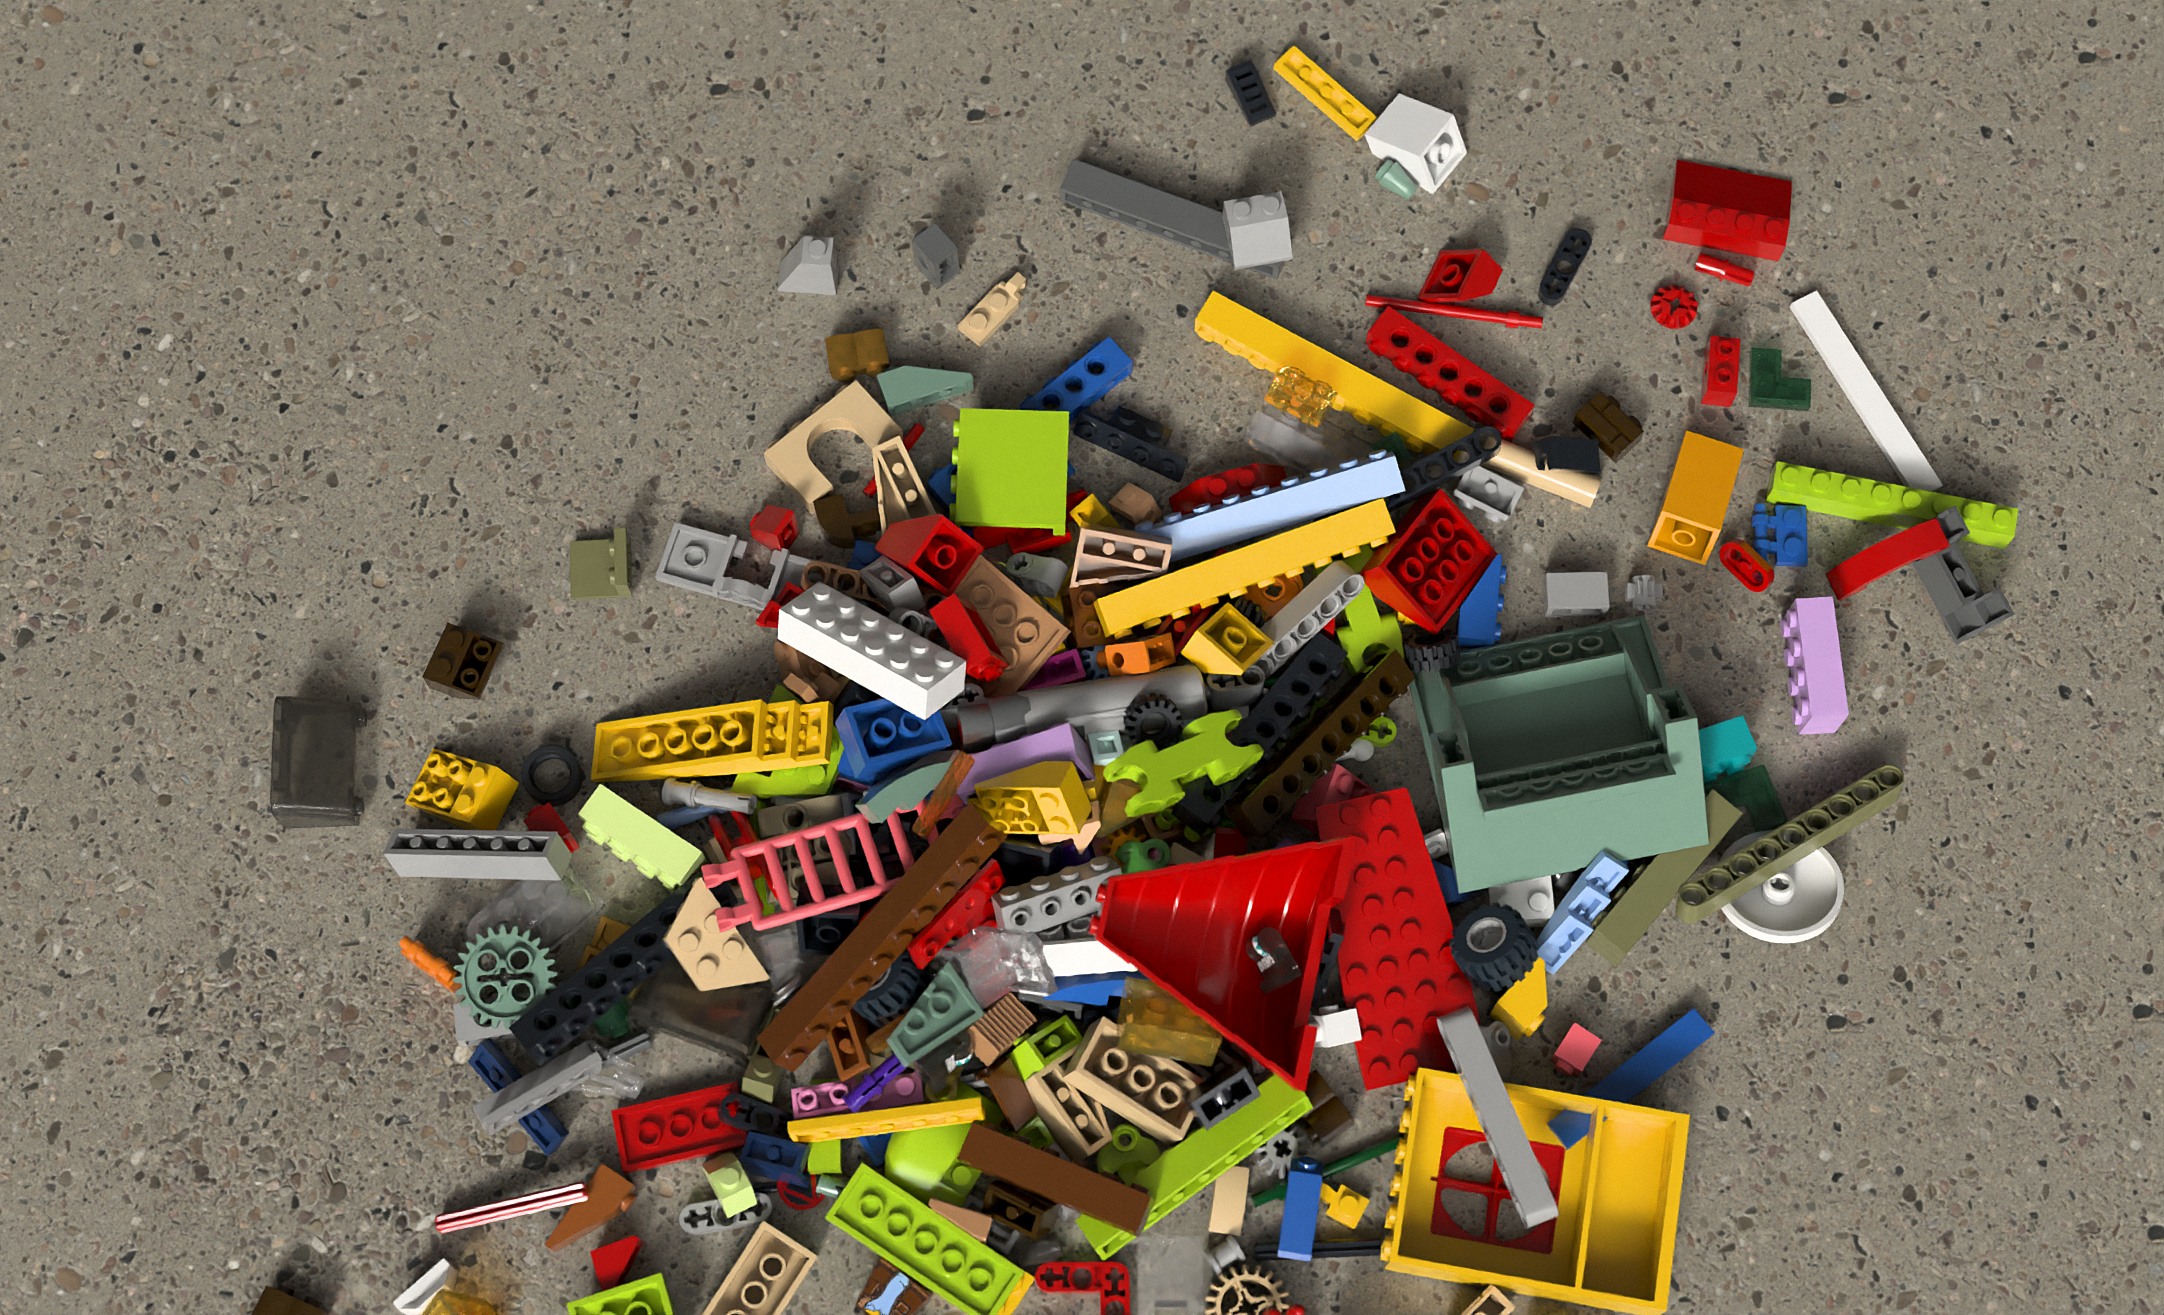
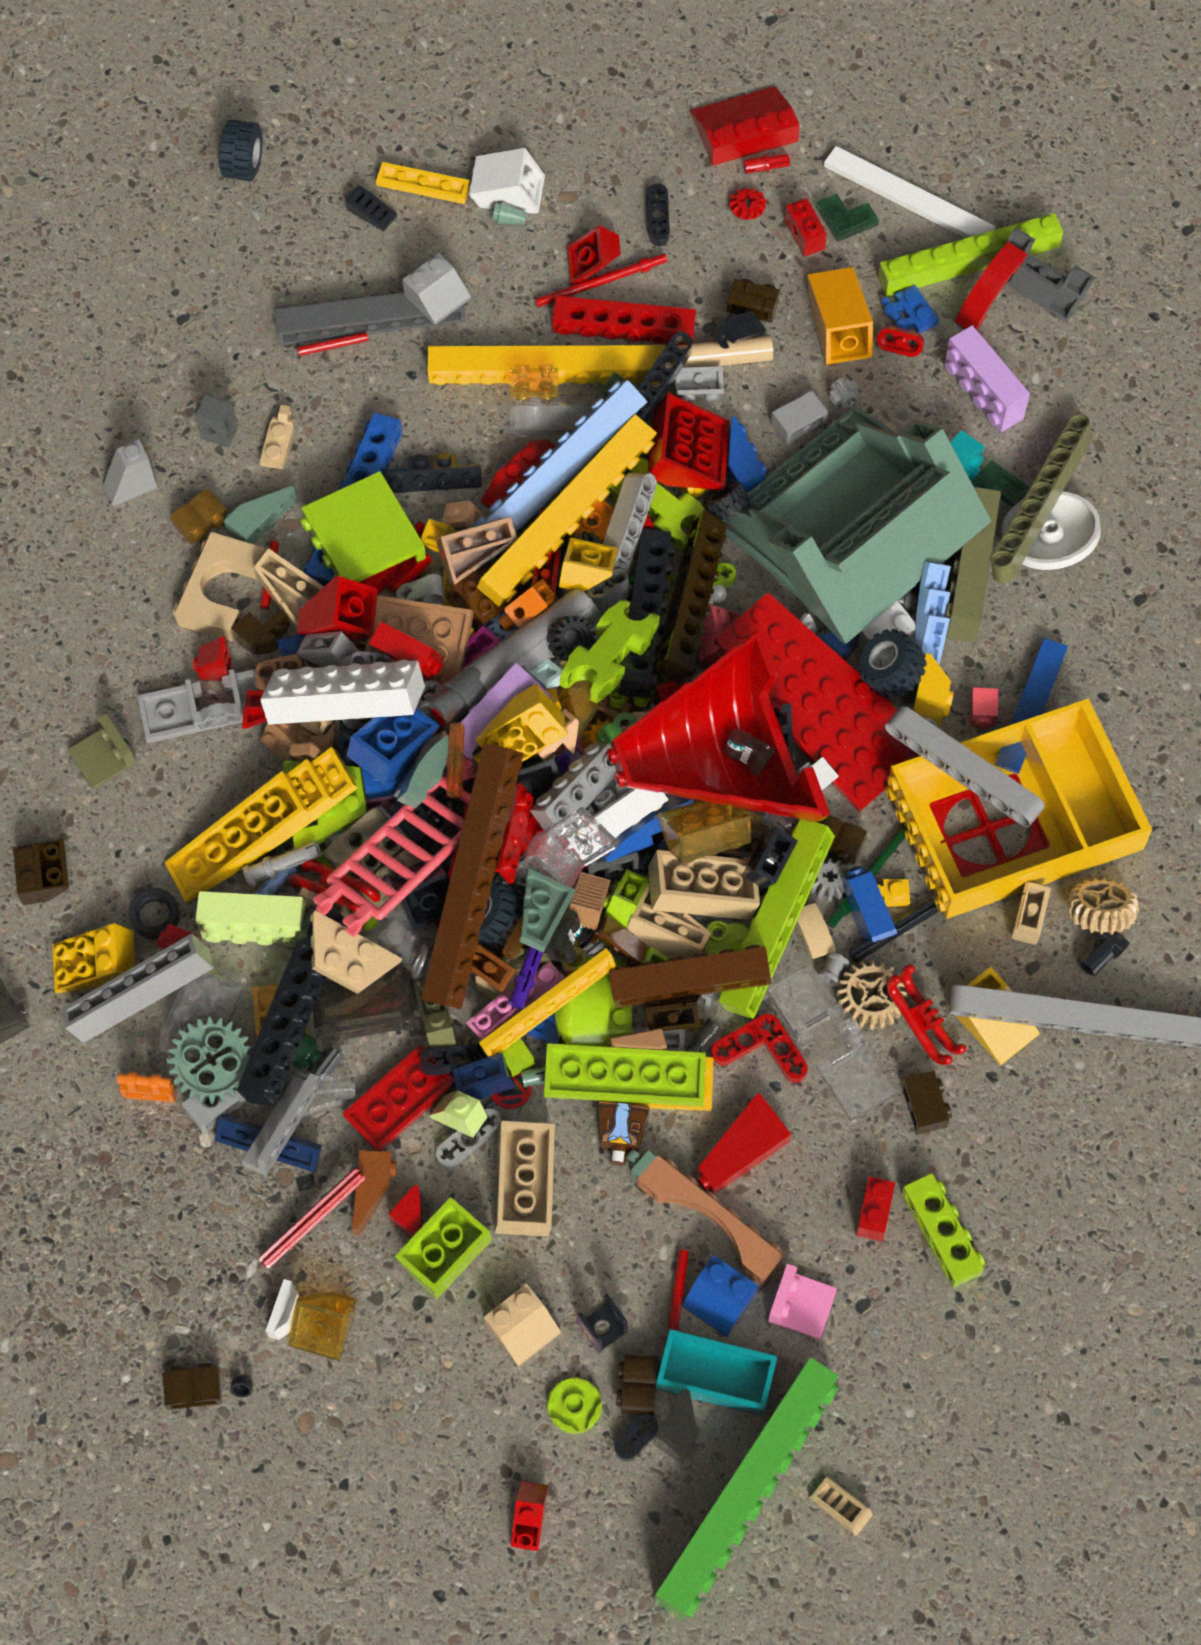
camera: 30 degrees left, 5 degrees down
(1116, 229) = (332, 344): none -> bar

